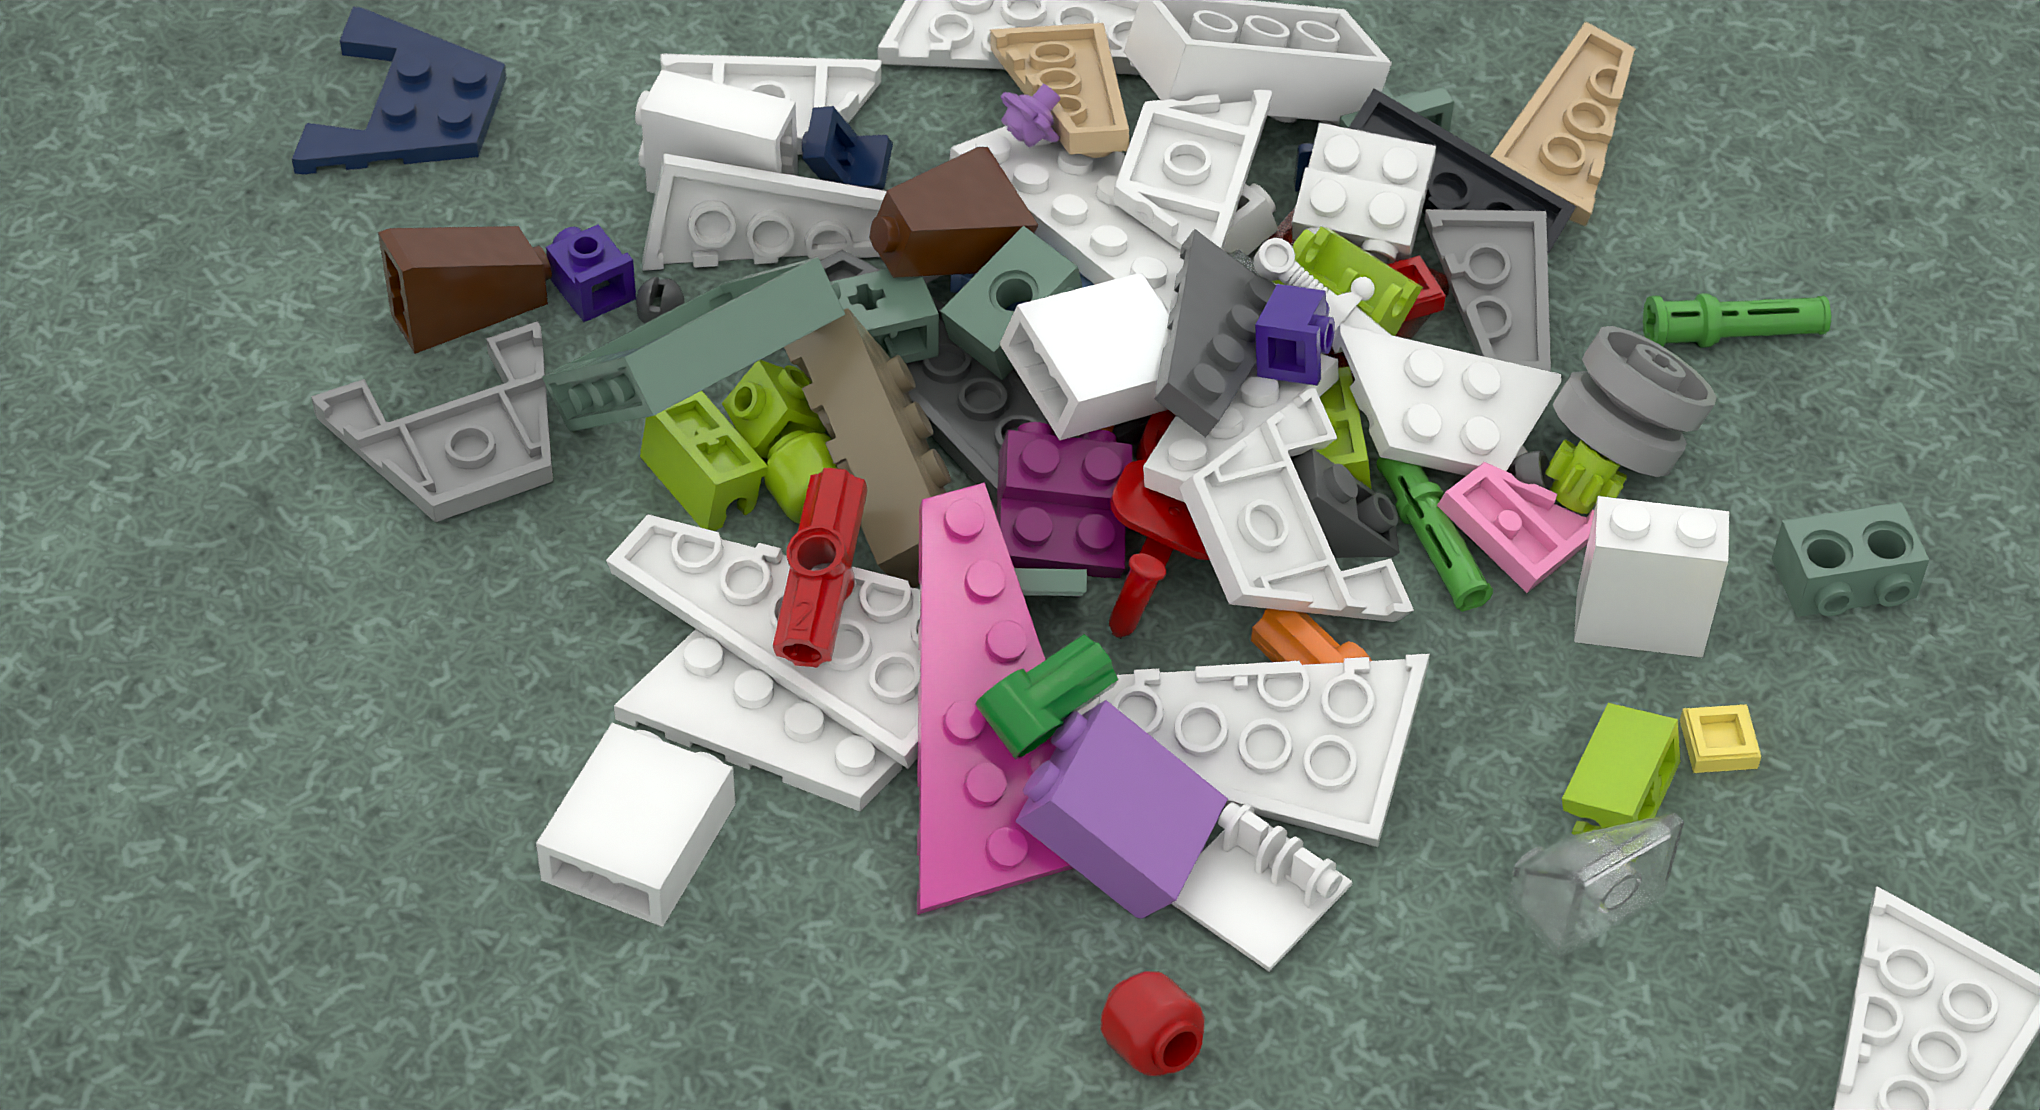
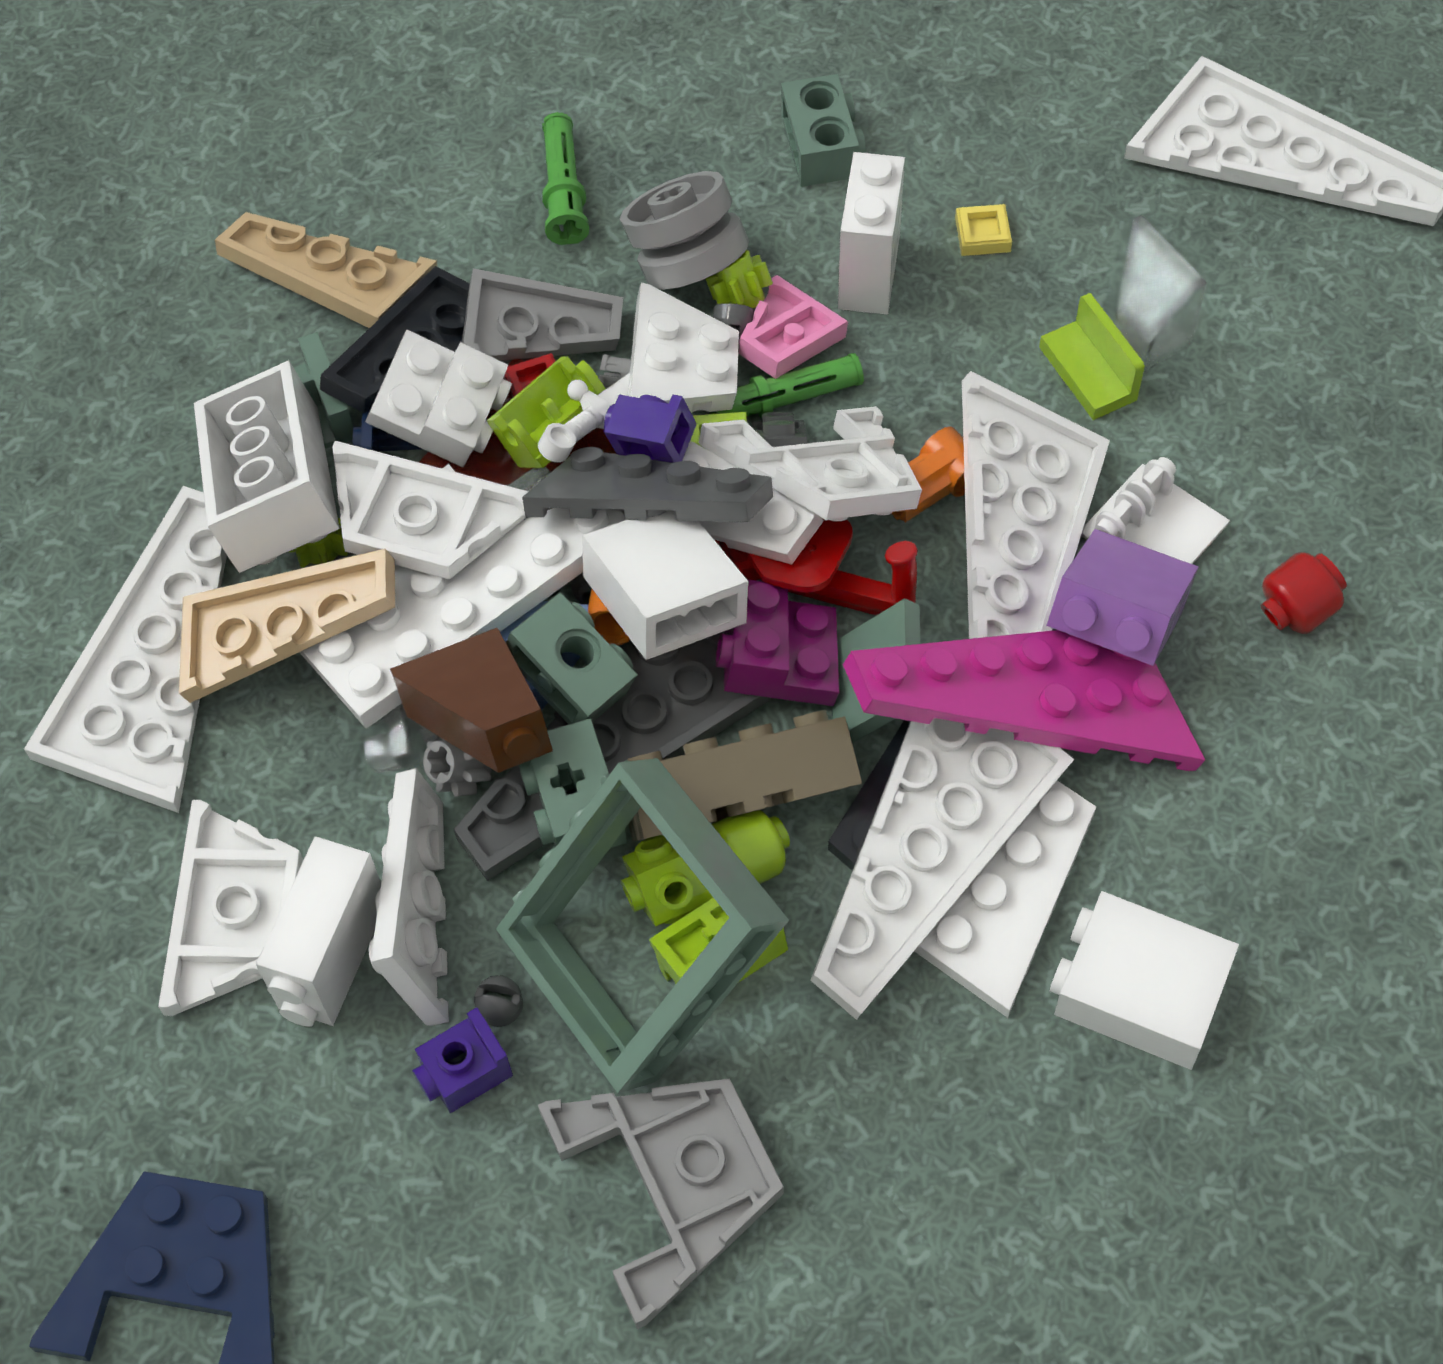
camera: 85 degrees left, 10 degrees up
(460, 279) = (486, 1178): reddish brown slope -> none
(816, 598) = (943, 815): red piece -> none
(841, 155) = (327, 817): dark blue bracket -> none
(1030, 116) = (349, 634): medium lavender plant -> none
(1033, 704) = (1057, 640): green piece -> none
(1496, 836) = (1095, 360): none -> lime panel
(1623, 769) = (1036, 277): lime hinge -> none

